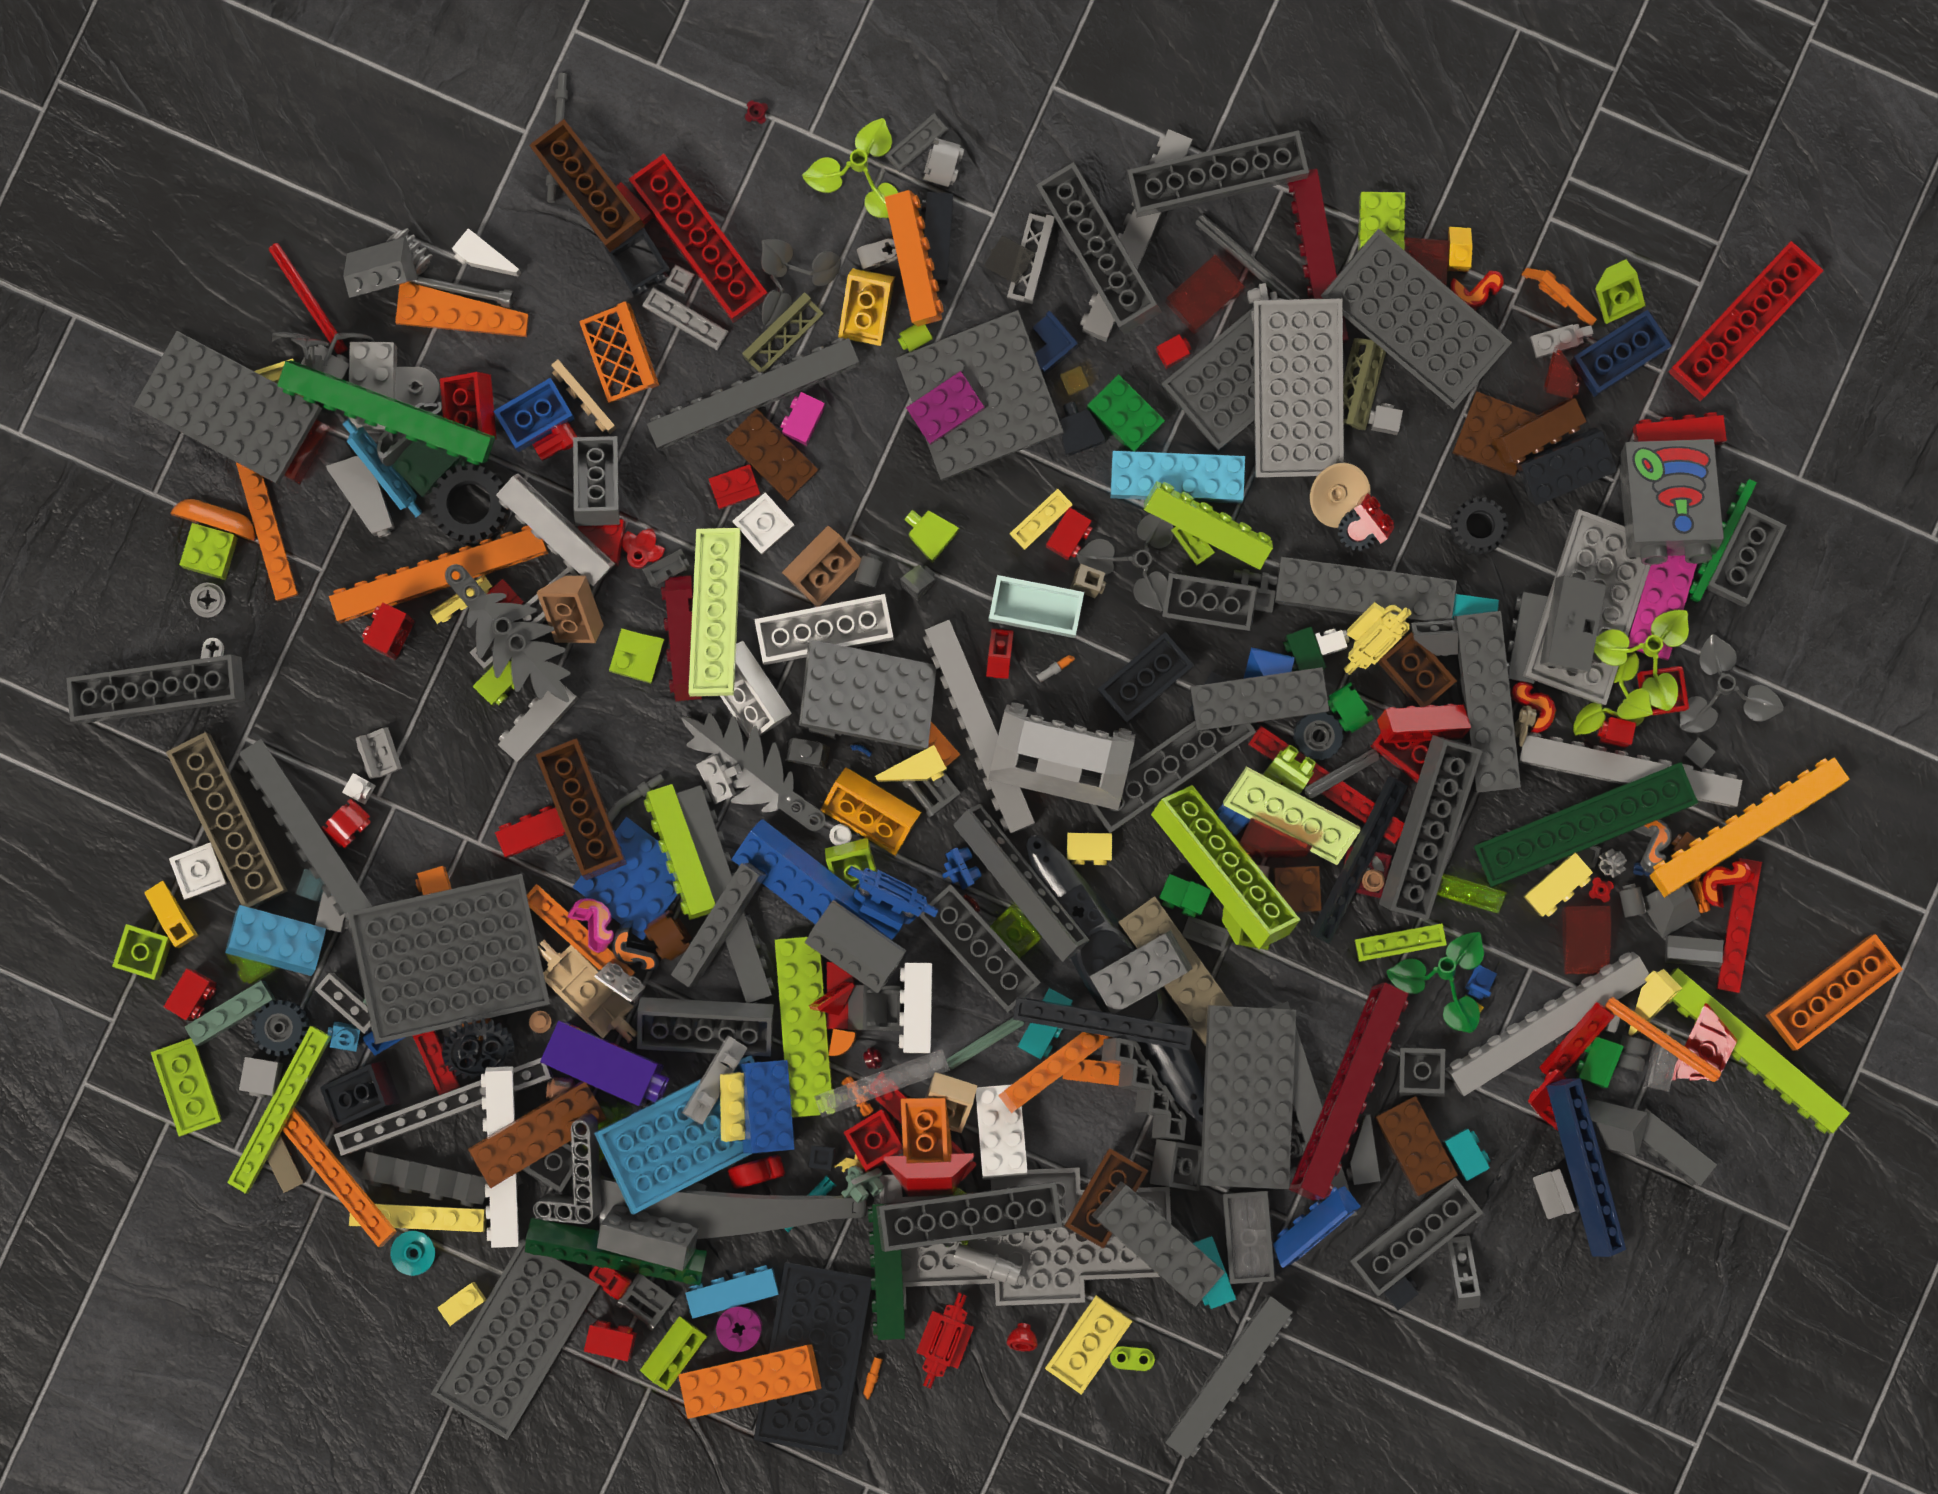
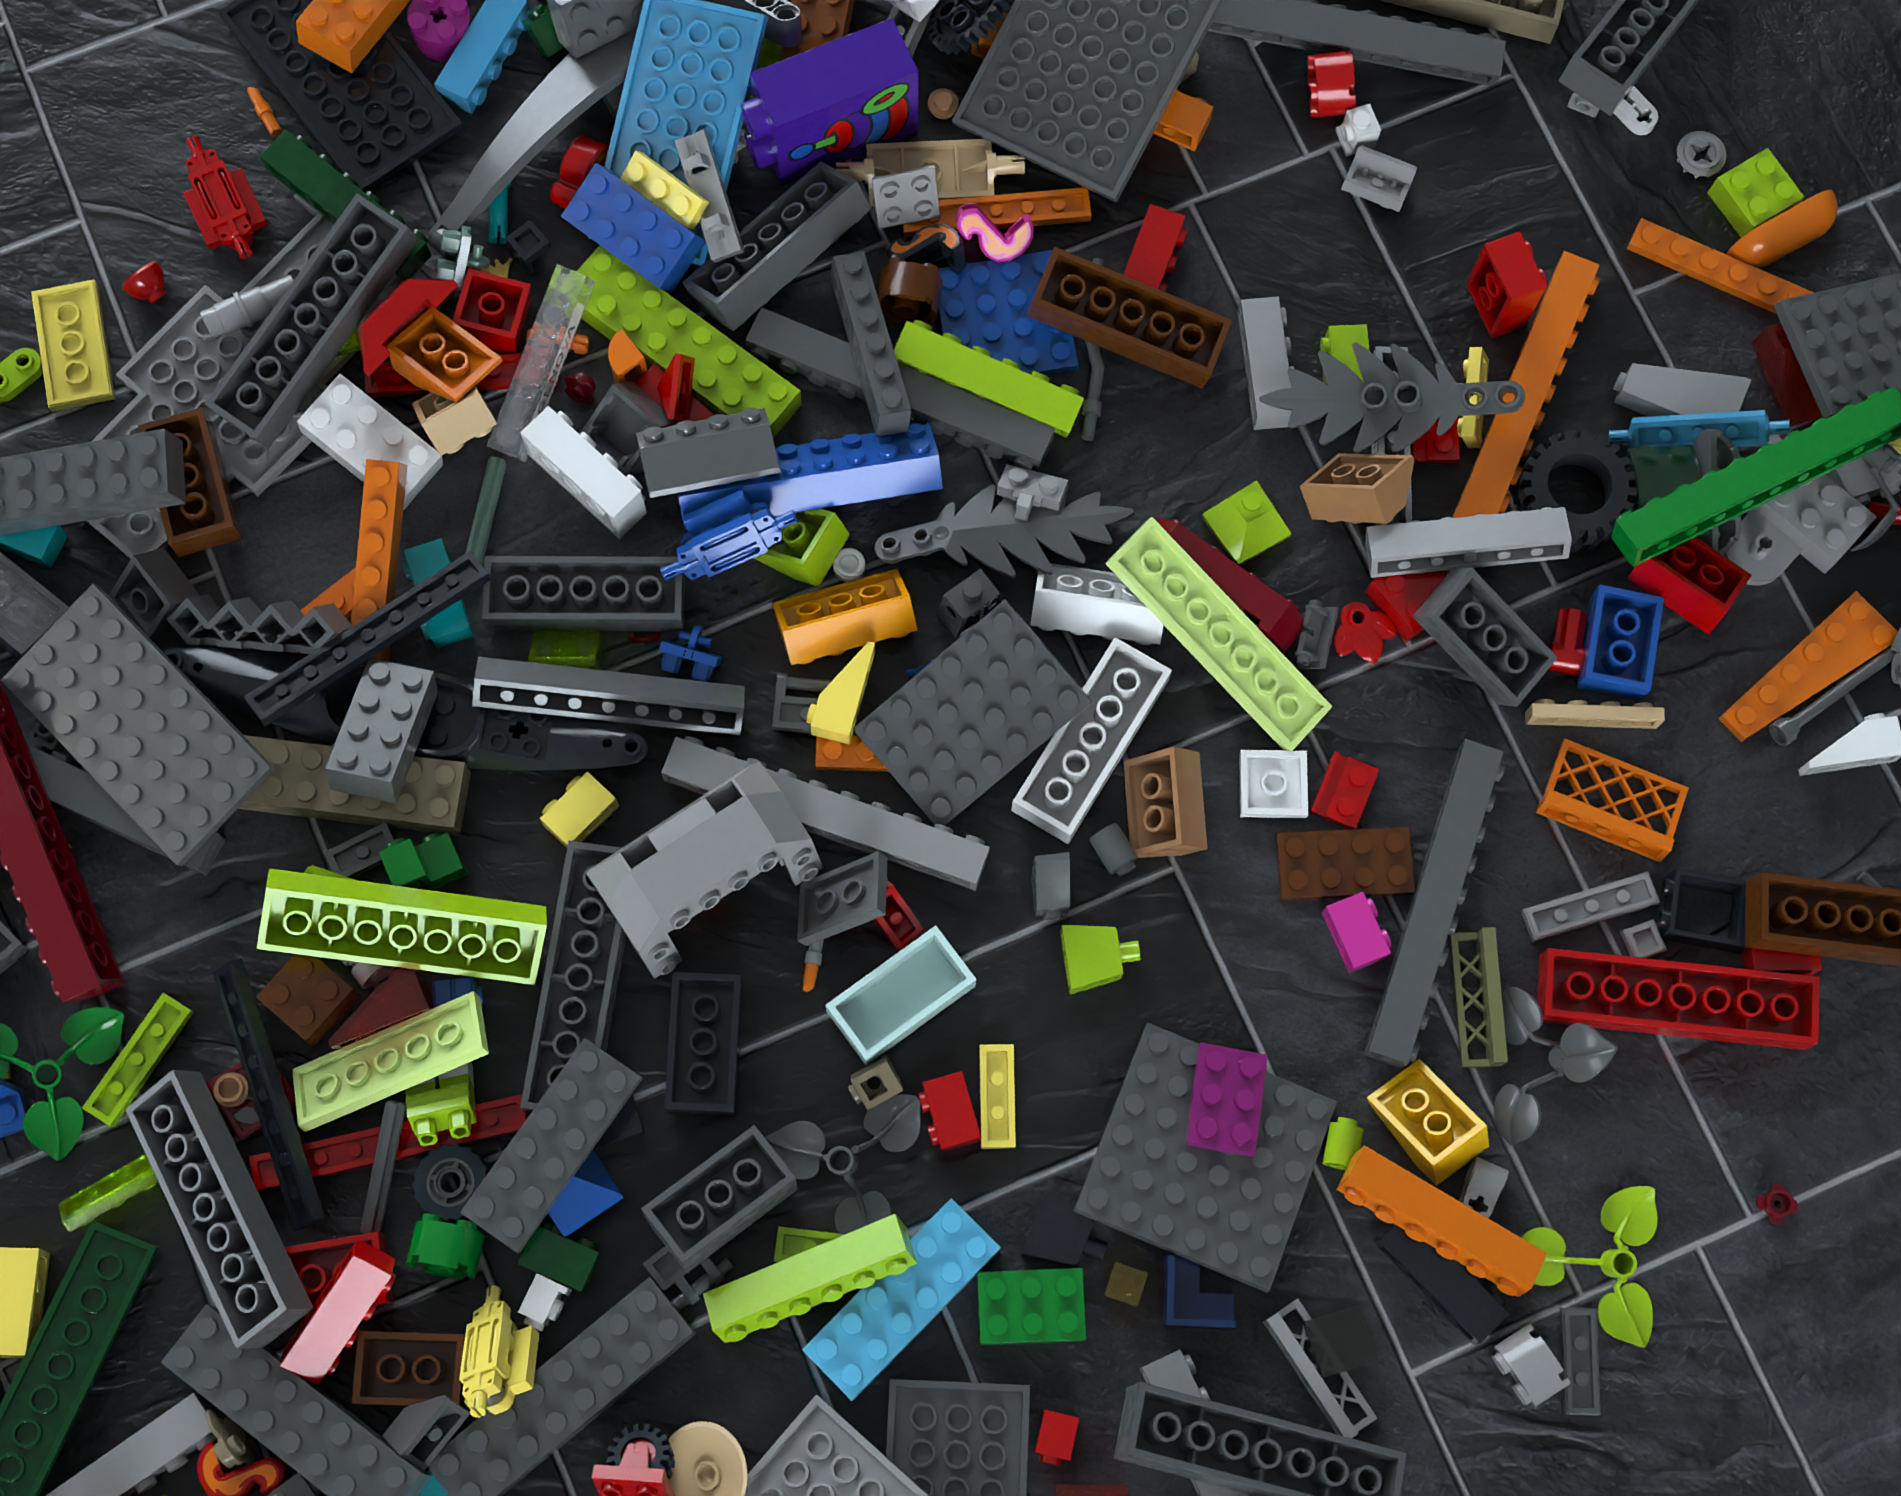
camera: 125 degrees right, 10 degrees down
(1016, 674) = (842, 898): none -> dark grey plate

